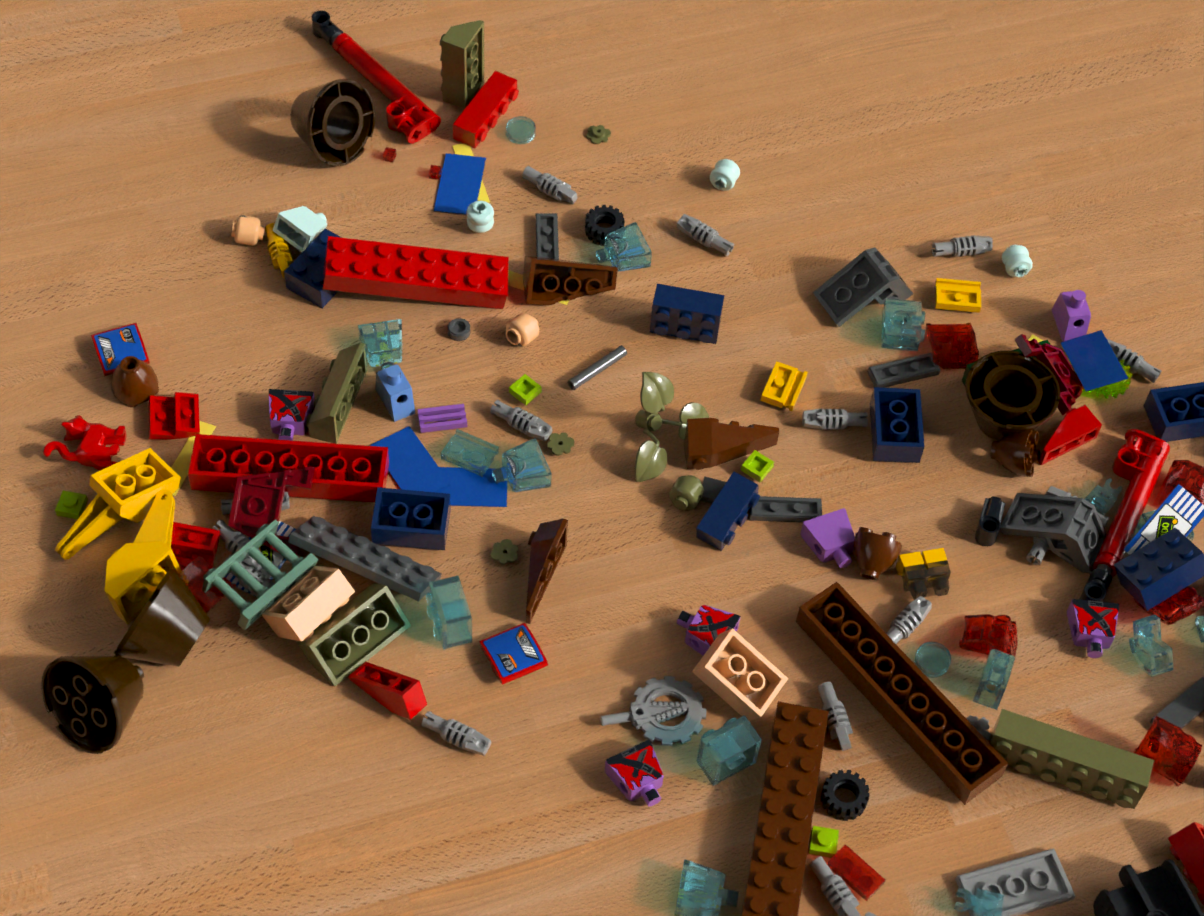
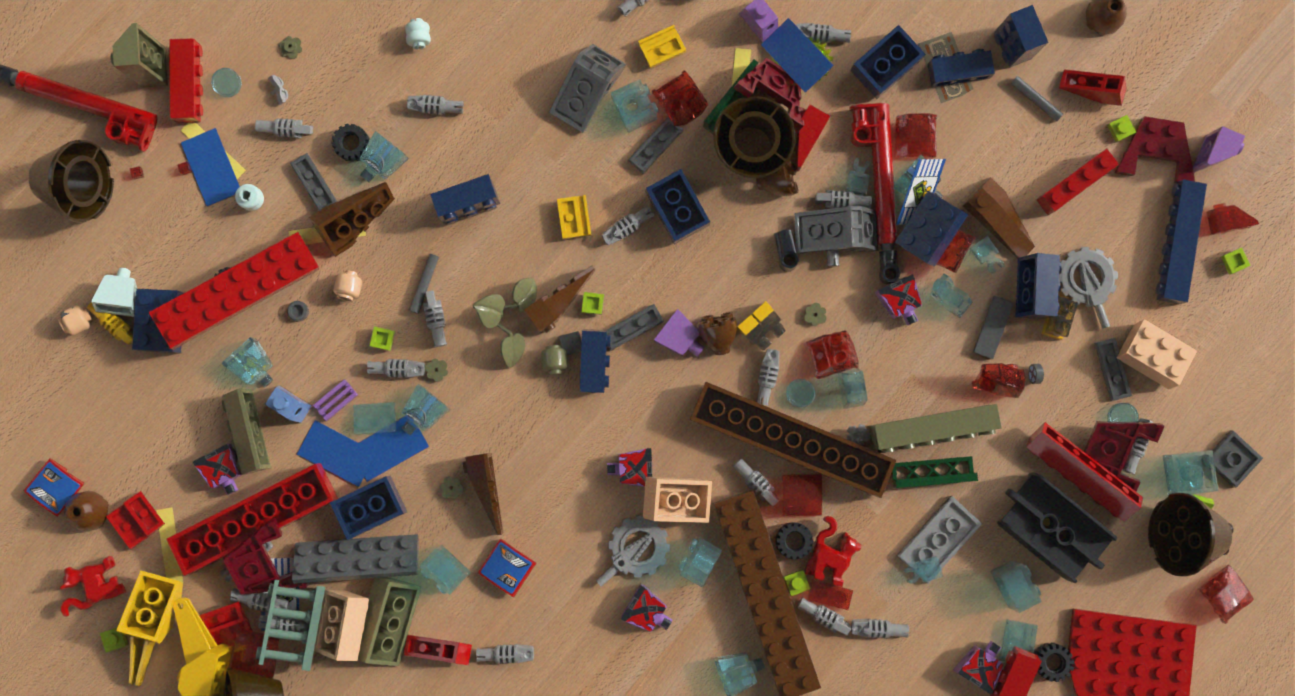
camera: 30 degrees left, 30 degrees up
(565, 160) = (282, 94): none -> light grey piece
(588, 400) = (435, 319): none -> light grey hinge
(878, 755) = (802, 495): none -> clear red slope
(878, 832) = (826, 556): none -> red animal
(989, 595) = (810, 318): none -> olive plant
(1042, 818) = (934, 480): none -> dark green fence

